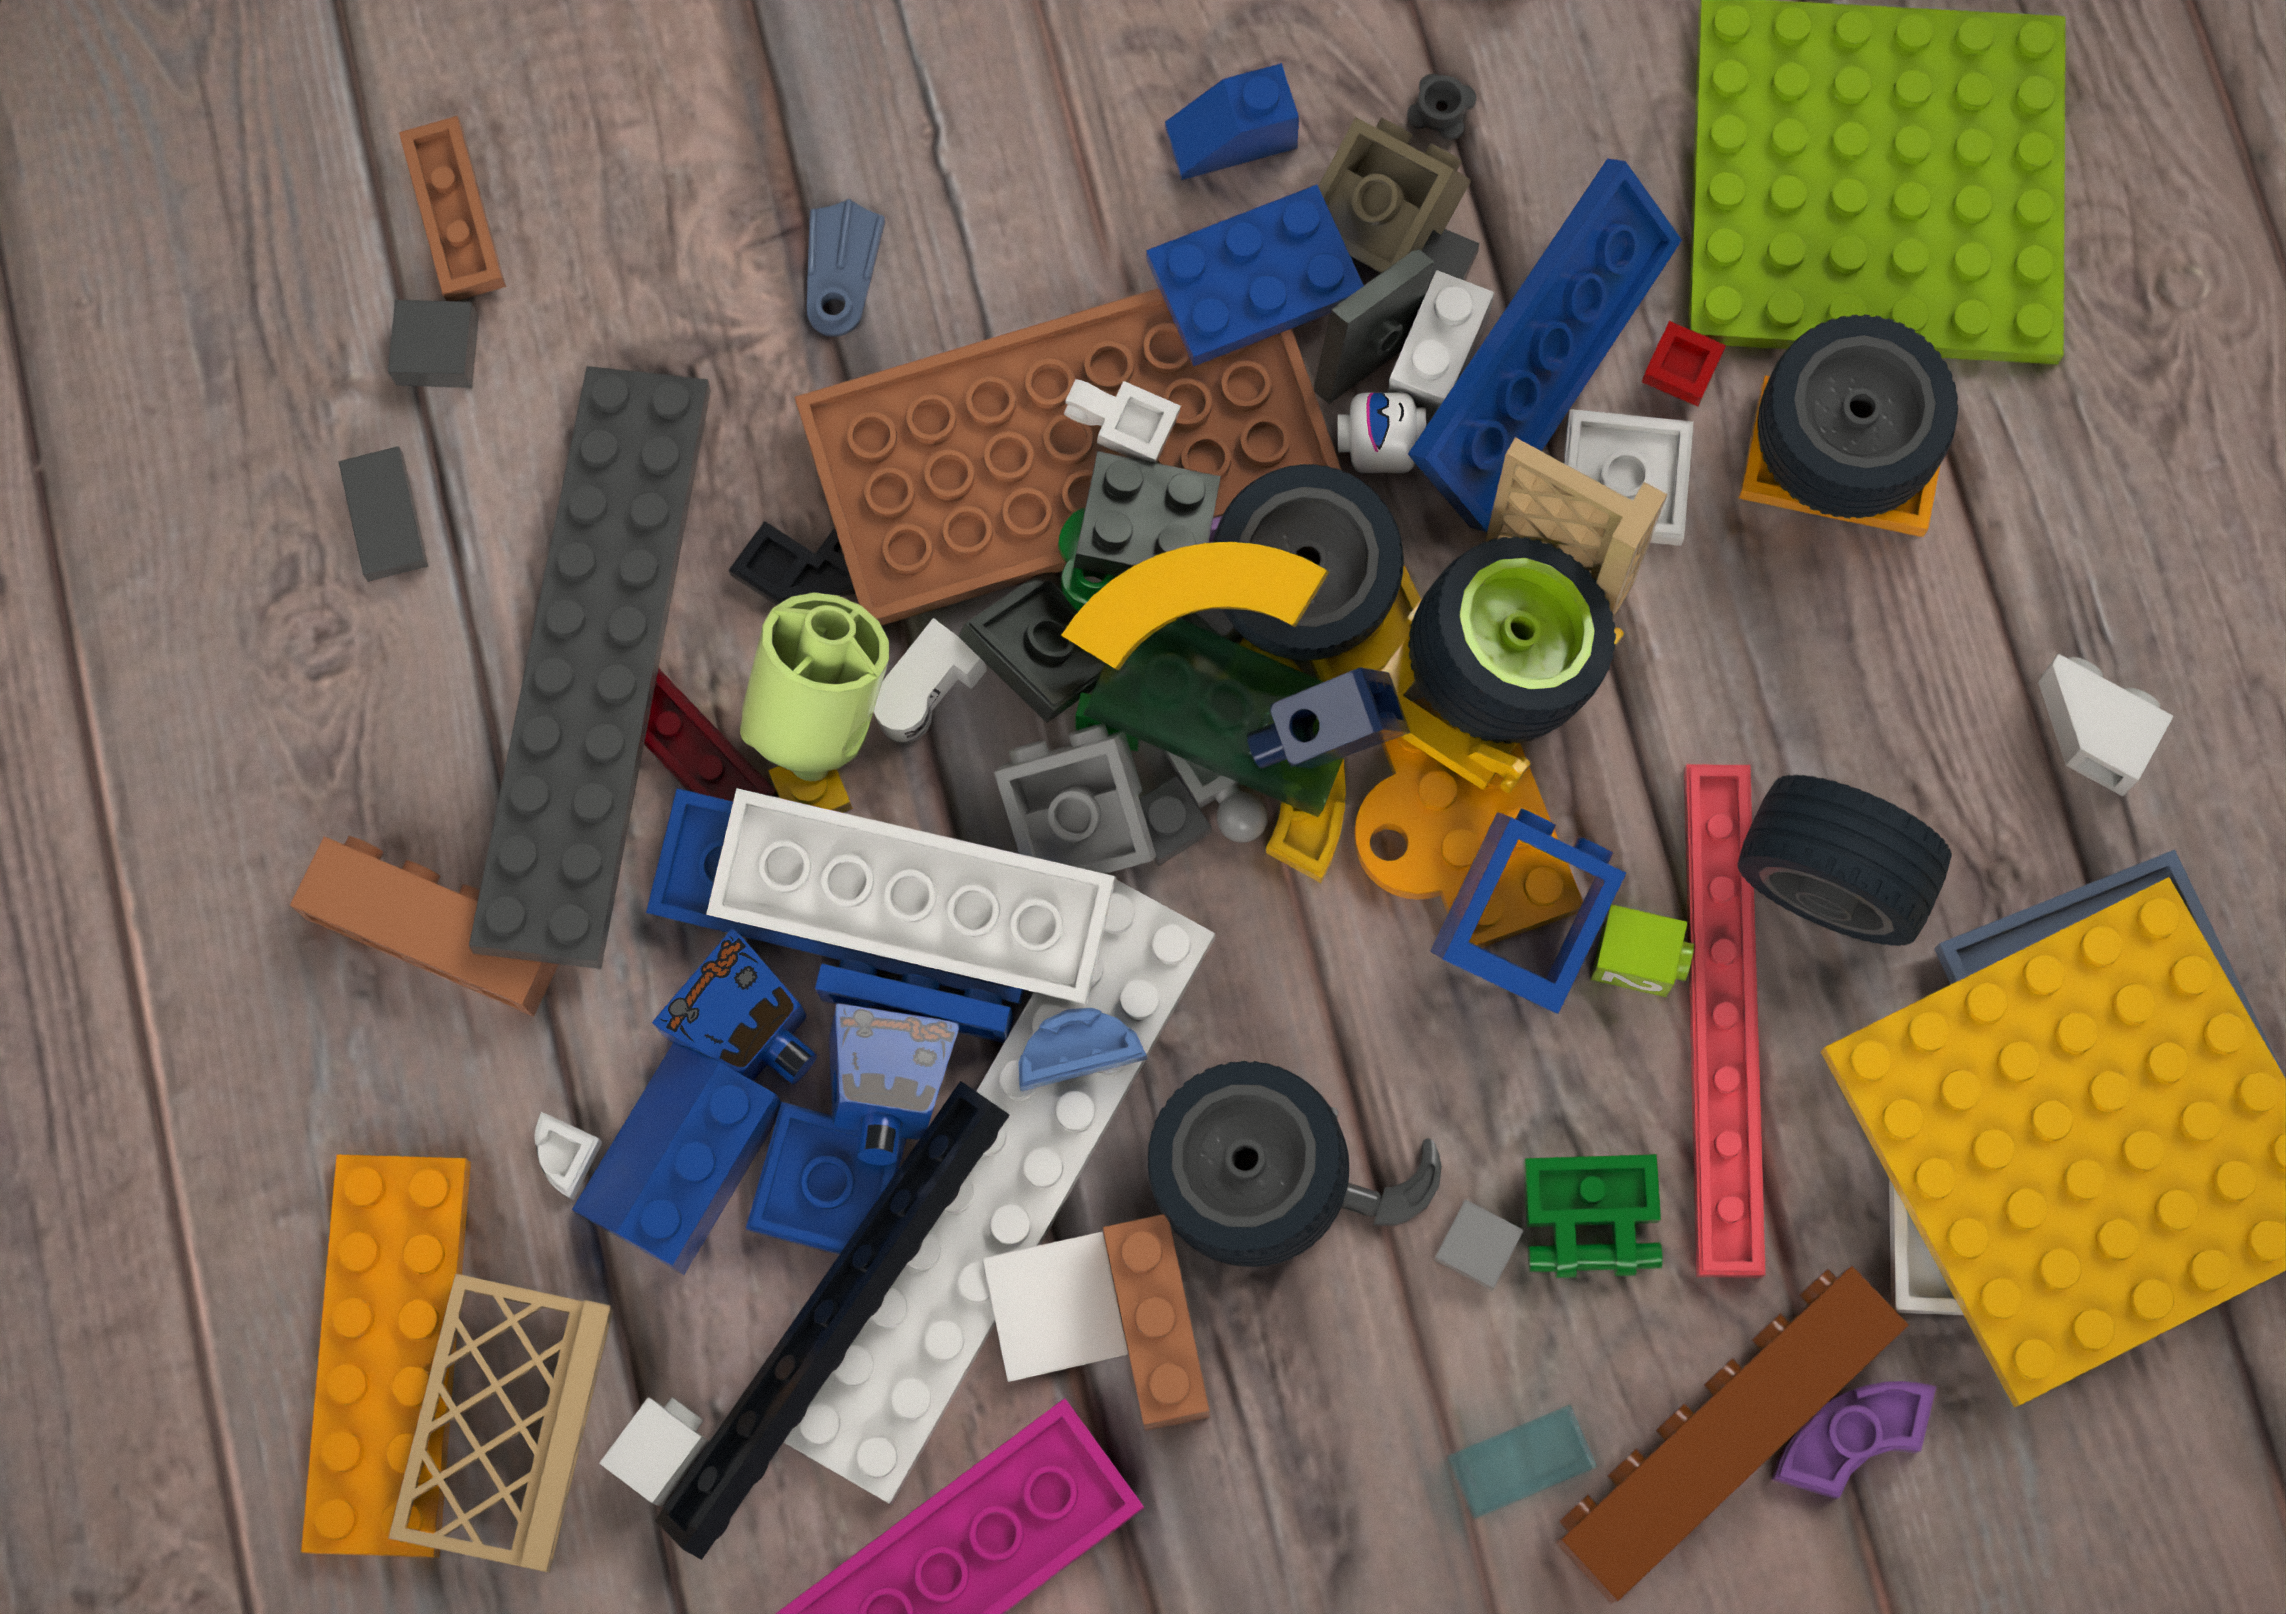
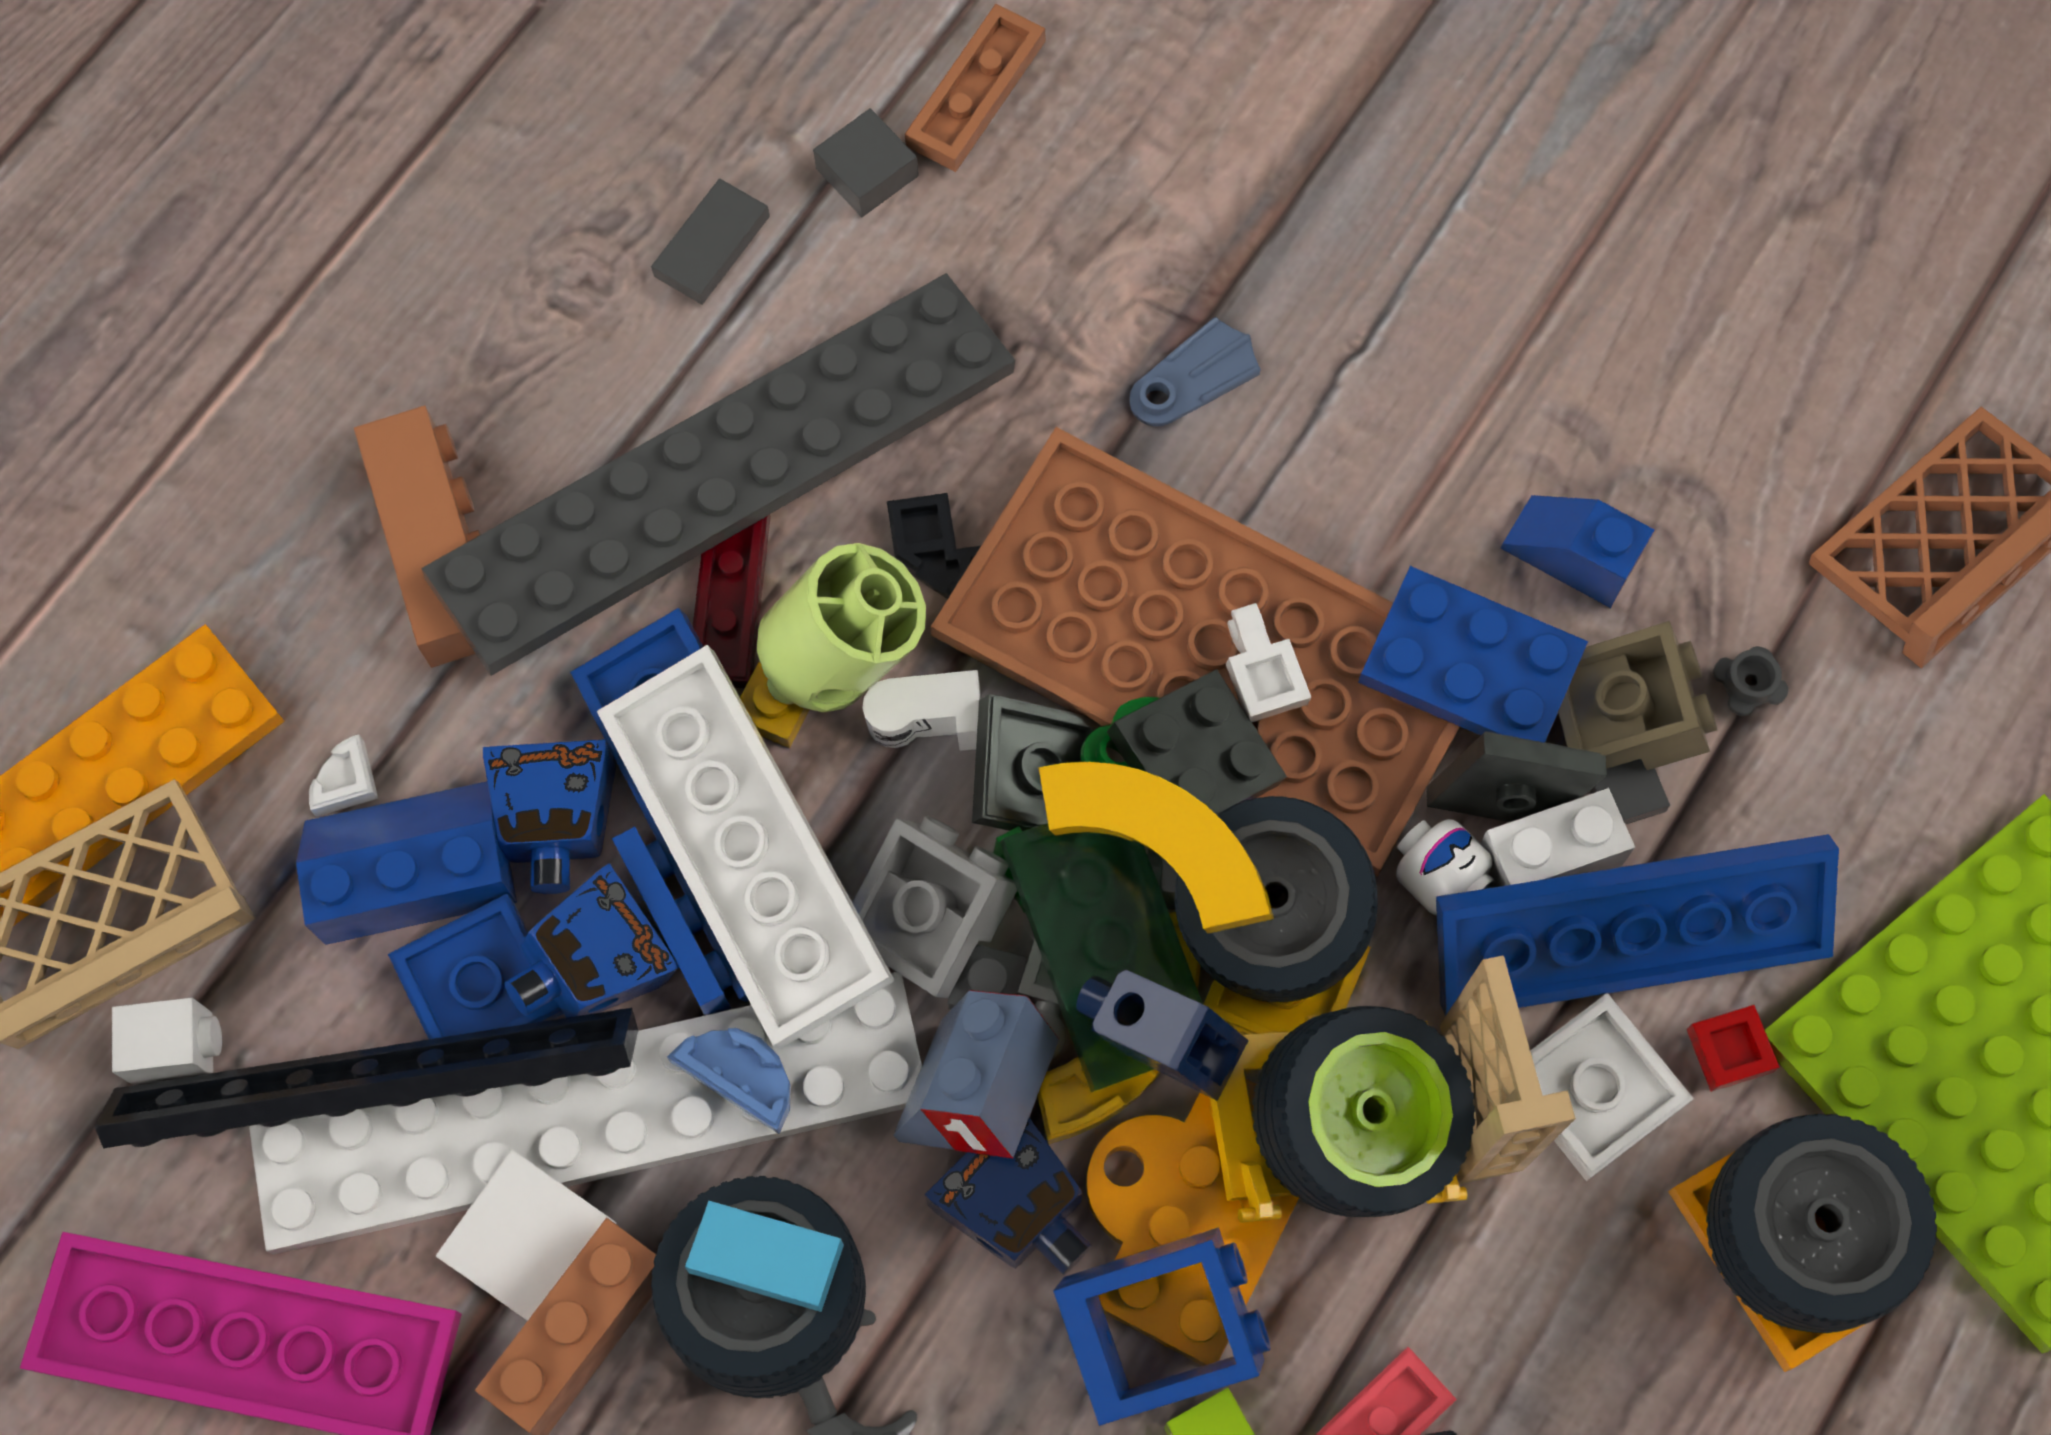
camera: 45 degrees right, 5 degrees down
(1237, 881) = (980, 1076): none -> sand blue slope
(1240, 1133) = (764, 1256): none -> medium azure tile
(1342, 935) = (1014, 1203): none -> dark blue torso

